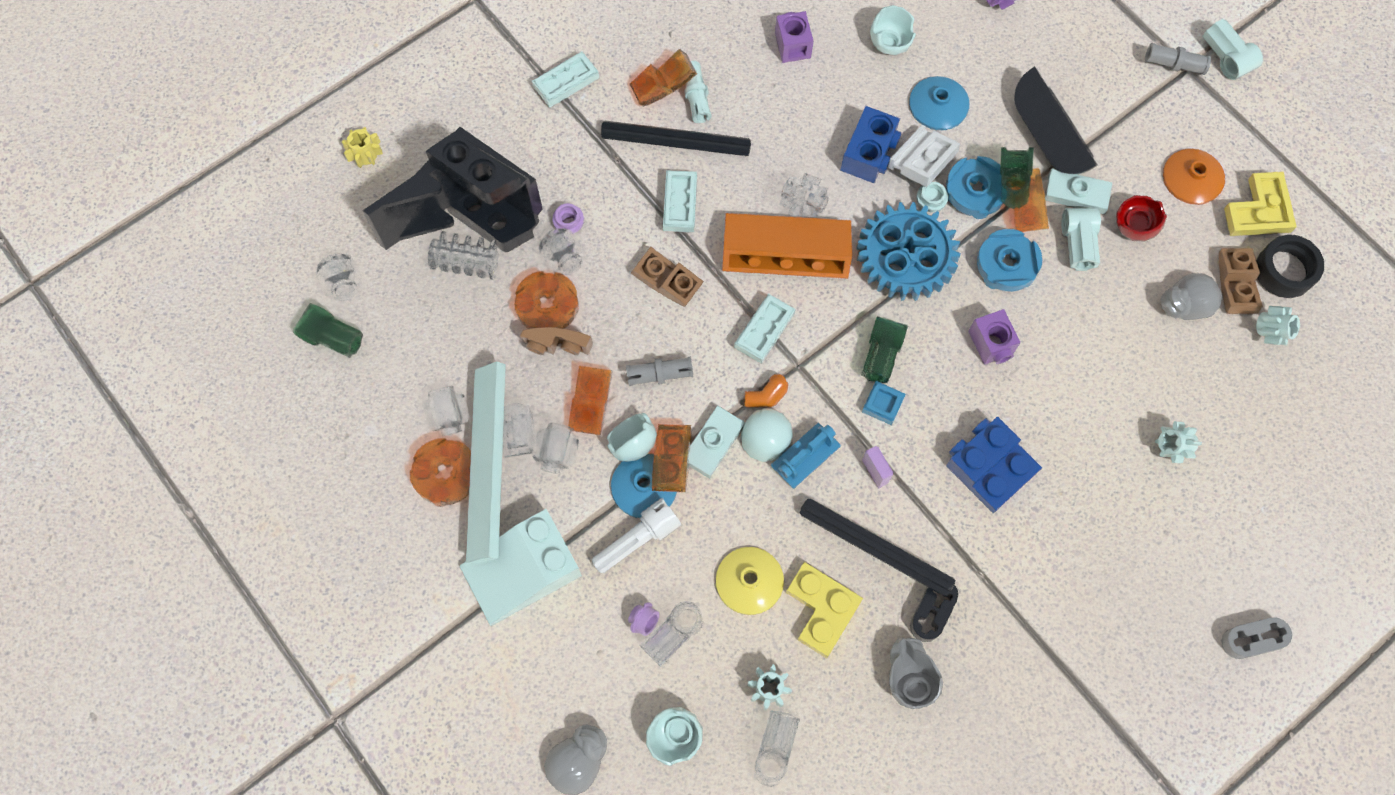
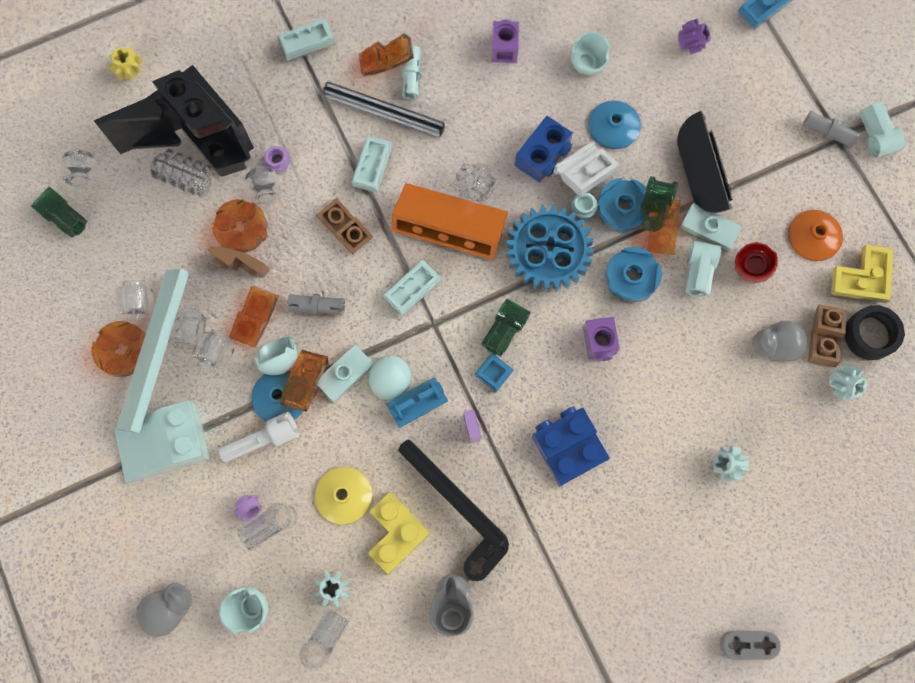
camera: 15 degrees right, 5 degrees up
(770, 395) = (401, 345): orange arm -> none

